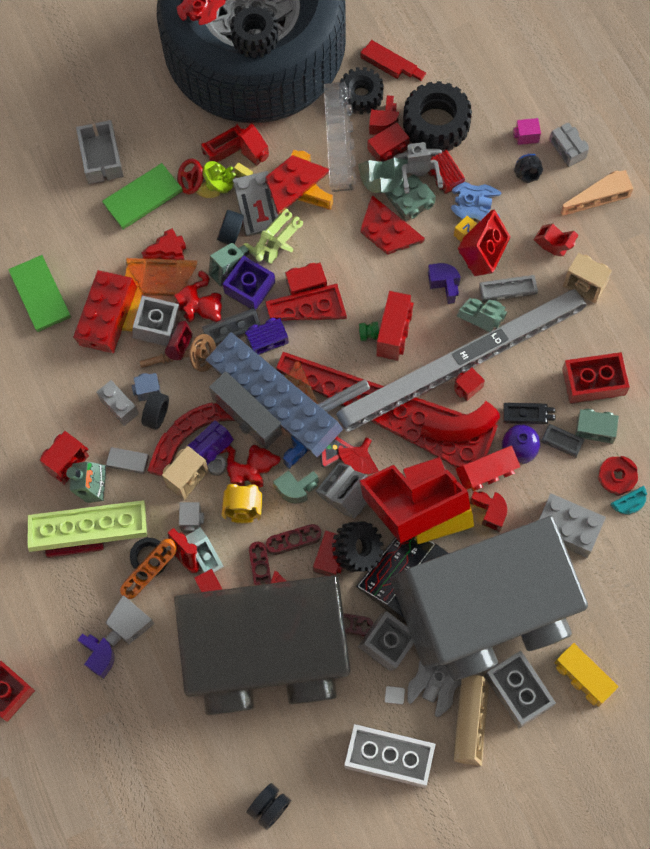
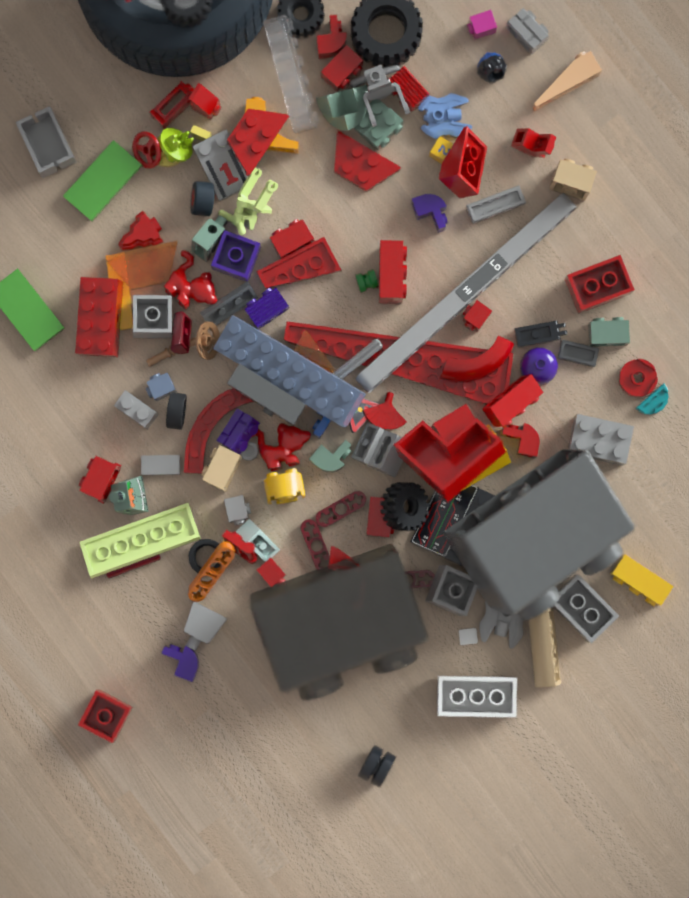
camera: 15 degrees left, 15 degrees up
(482, 315) = (476, 241): sand green plate -> none

